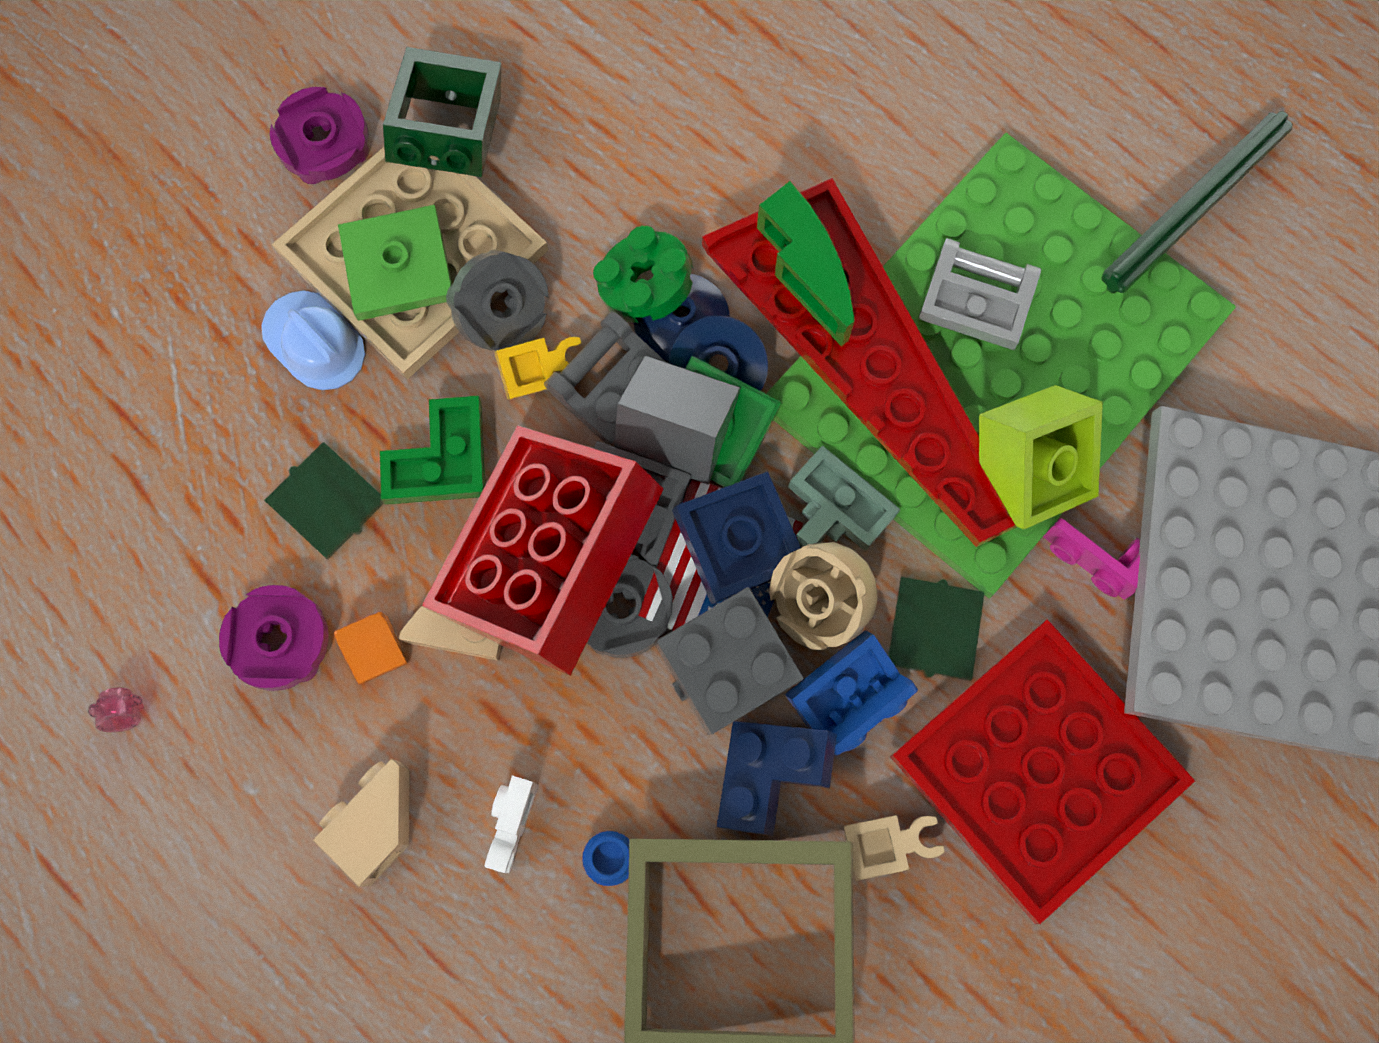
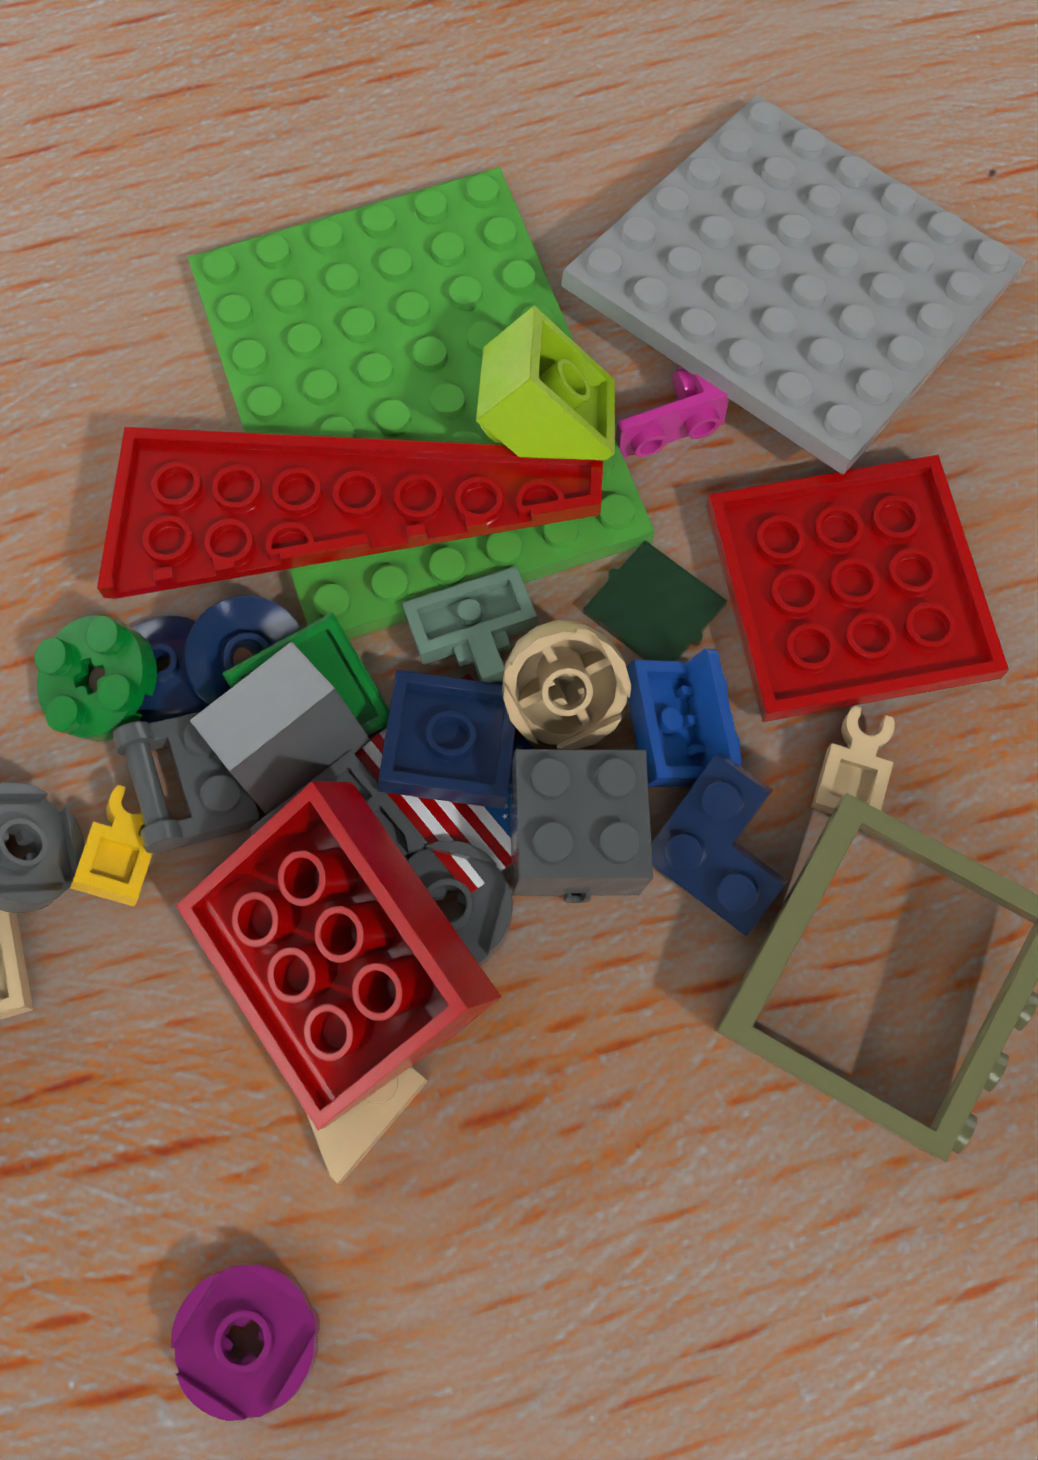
camera: 60 degrees left, 5 degrees down
(325, 500) = (114, 1188): clear green piece -> none
(370, 647) = (327, 1224): orange slope -> none
(372, 827) = (545, 1336): tan slope -> none
(447, 468) = (170, 1017): green plate -> none
(512, 809) = (611, 1151): white plate -> none
(607, 858) = (720, 1072): blue plate -> none
(807, 260) = (203, 490): green slope -> none
(977, 306) = (351, 376): light grey plate -> none
(1196, 203) = (379, 140): dark green axle -> none

